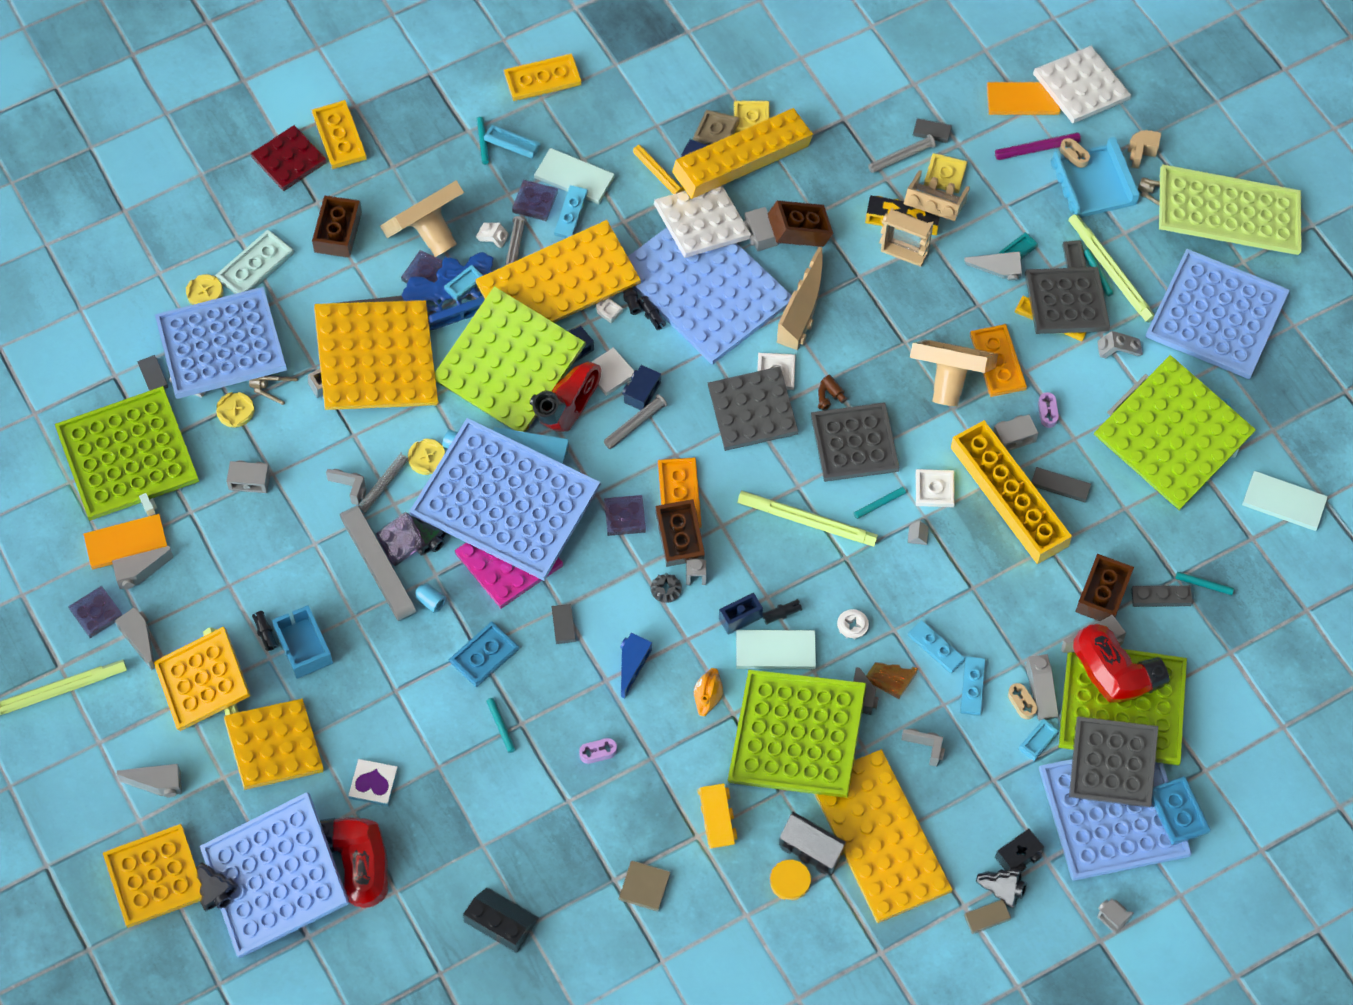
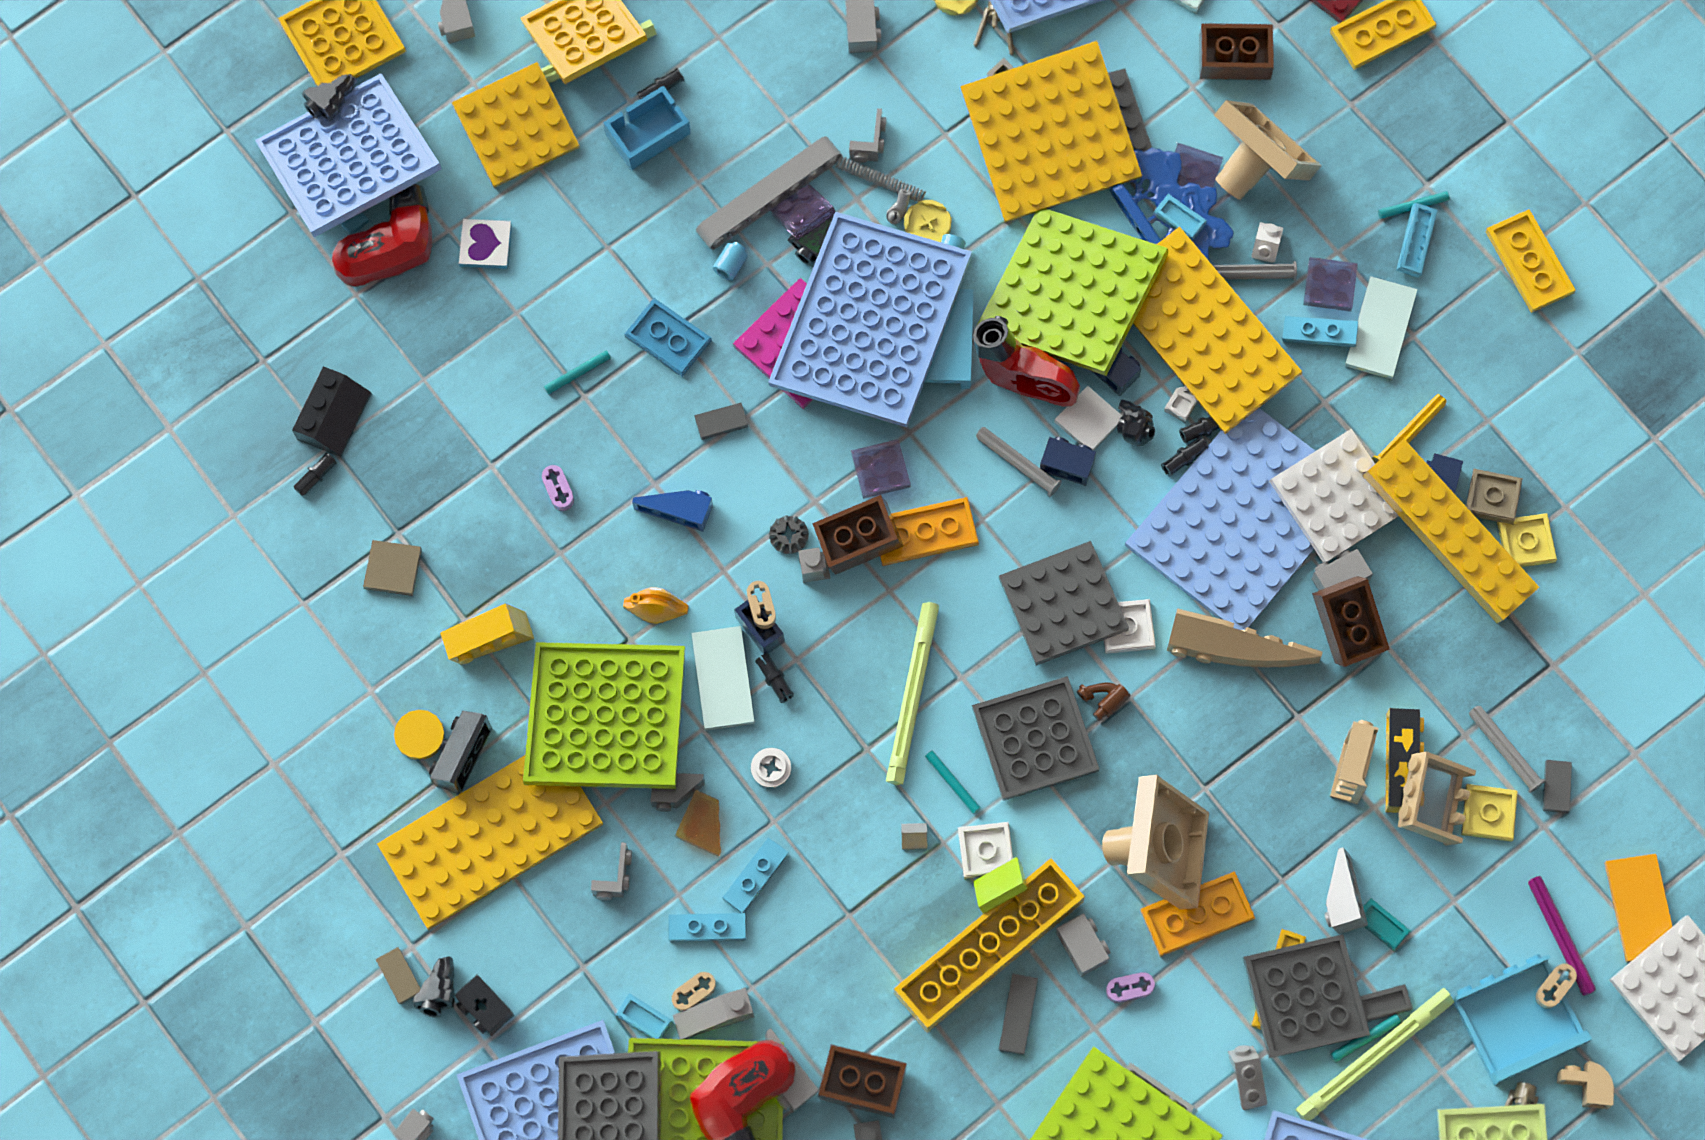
camera: 85 degrees right, 10 degrees up
(414, 477) = (899, 208): none -> light grey arm
(552, 938) = (315, 474): none -> black axle
(623, 338) = (1135, 424): none -> black head
(729, 602) = (766, 603): none -> tan beam
(968, 475) = (1000, 885): none -> tile

